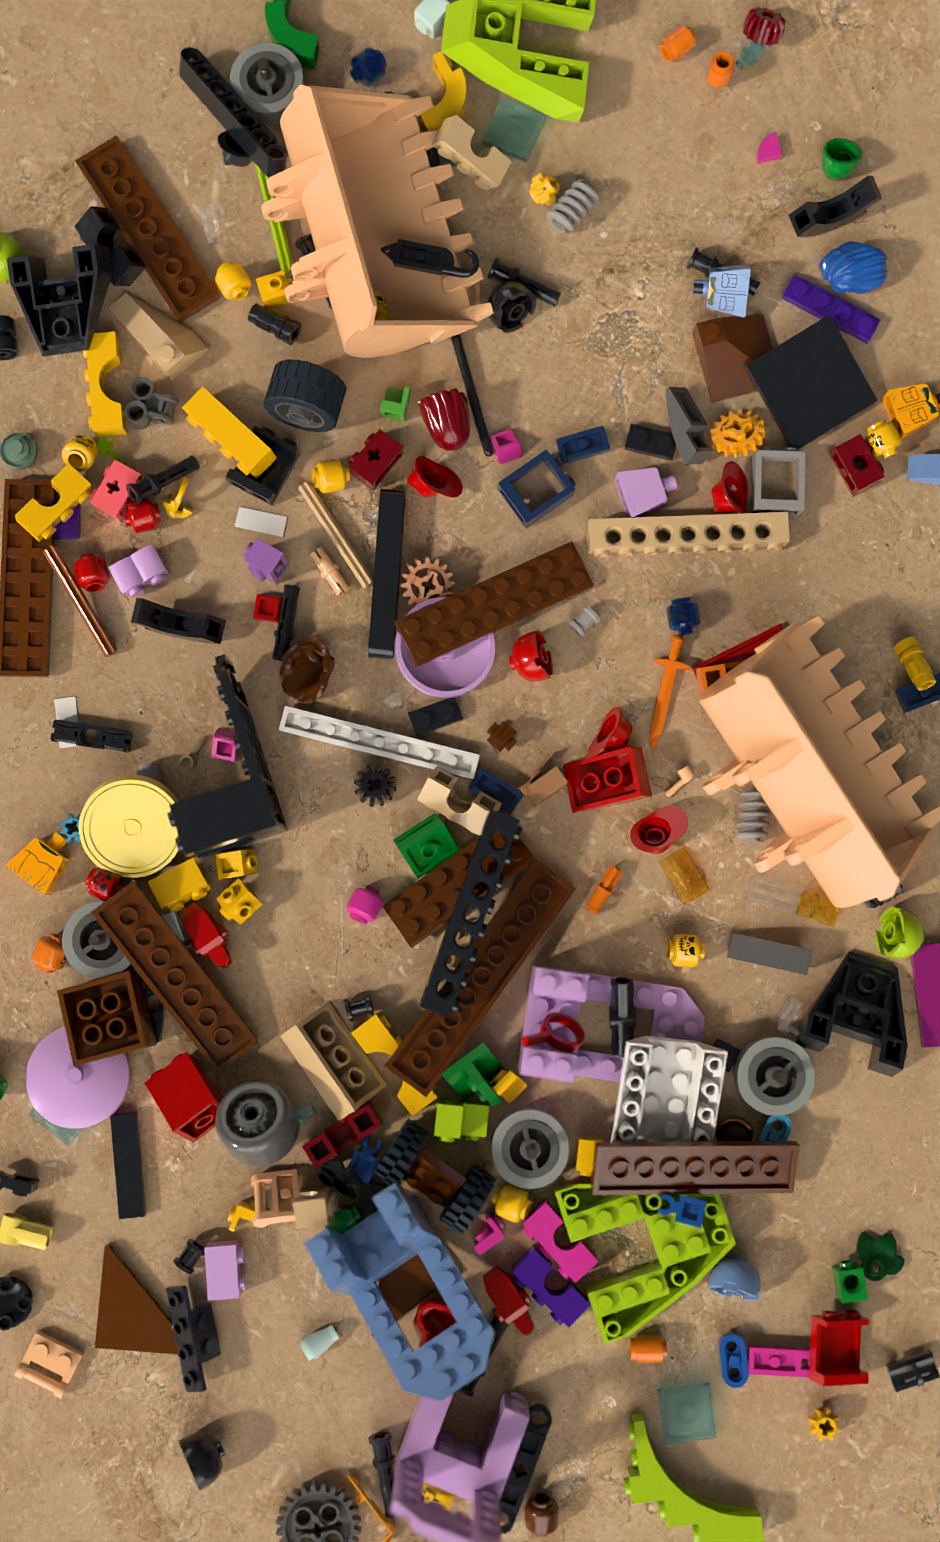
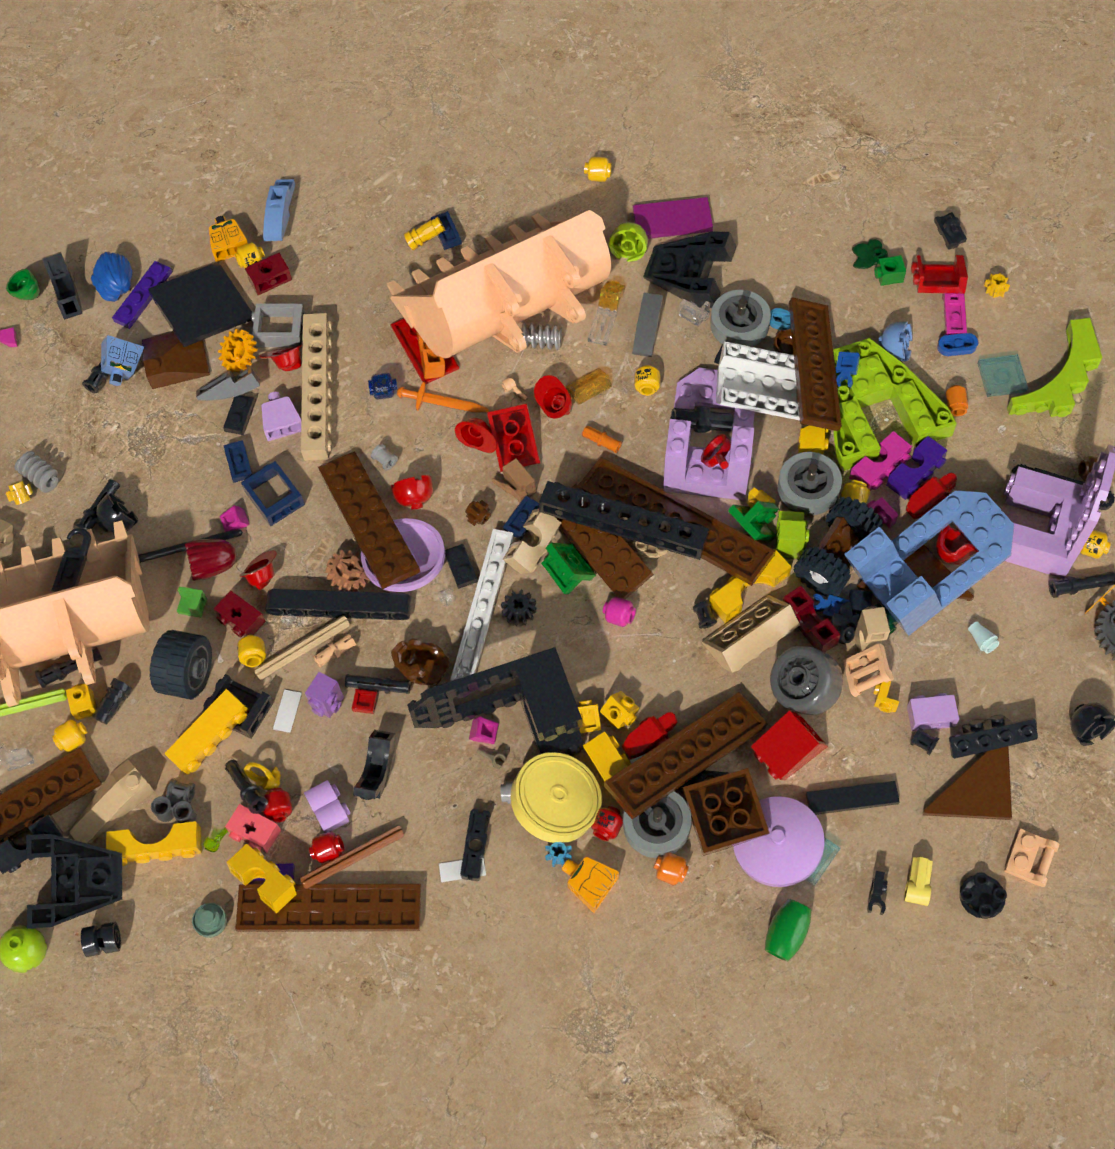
camera: 85 degrees left, 20 degrees down
(80, 452) = (213, 861): yellow head -> none

